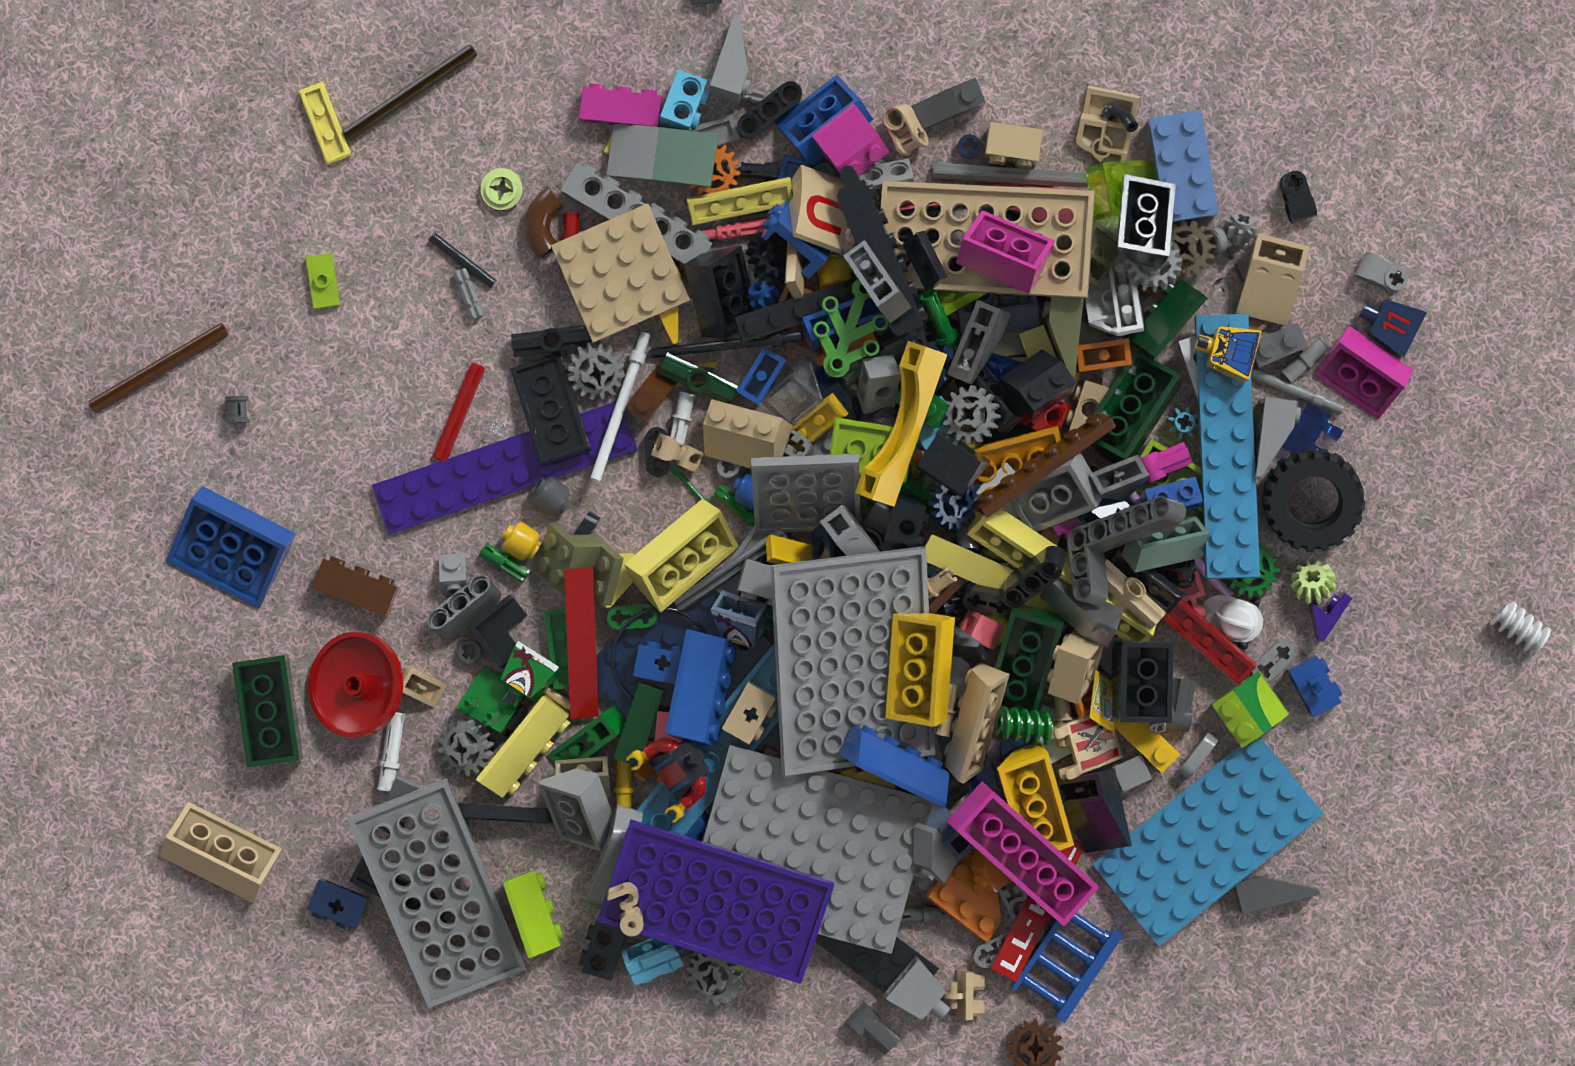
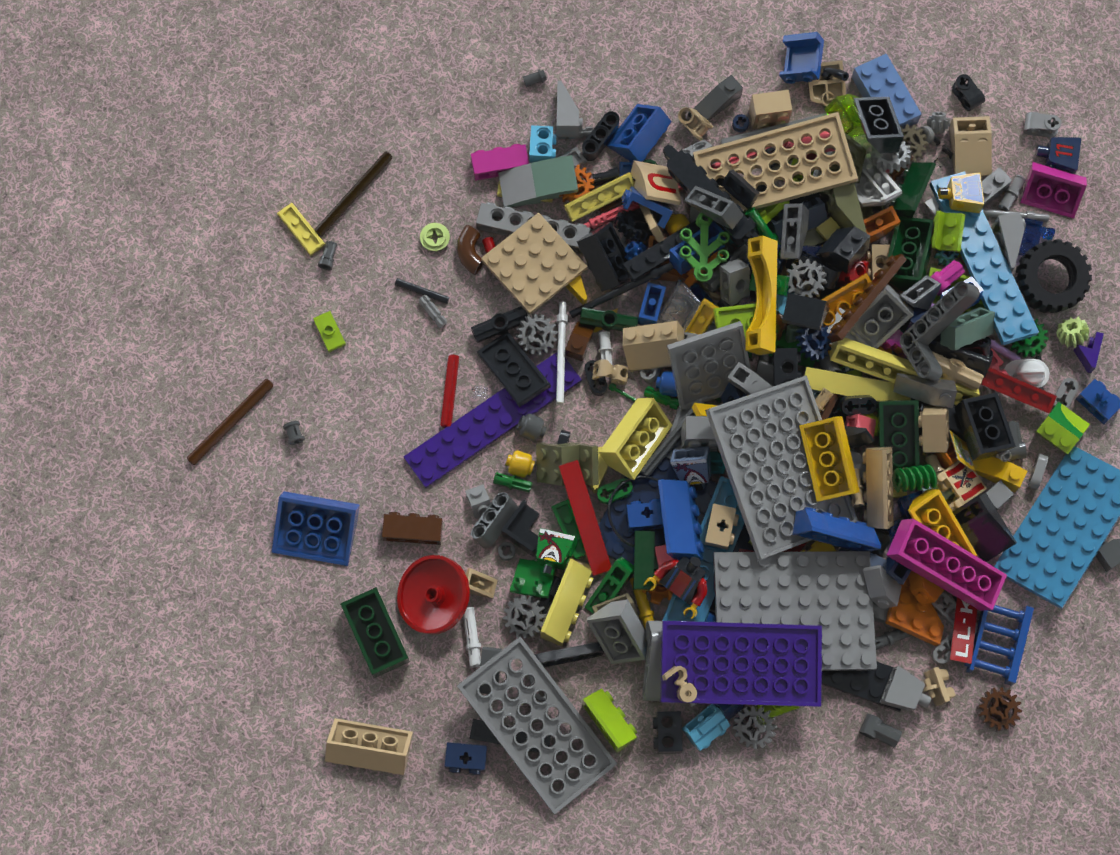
camera: 20 degrees left, 15 degrees down
(349, 174) = (326, 260): none -> dark grey pin
(850, 141) = (659, 133): dark pink slope -> none
(1004, 251) = (792, 166): dark pink slope -> none
(1033, 576) = (886, 382): black beam -> none
(1084, 80) = (802, 57): none -> blue panel
(1190, 397) = (948, 231): none -> lime bracket

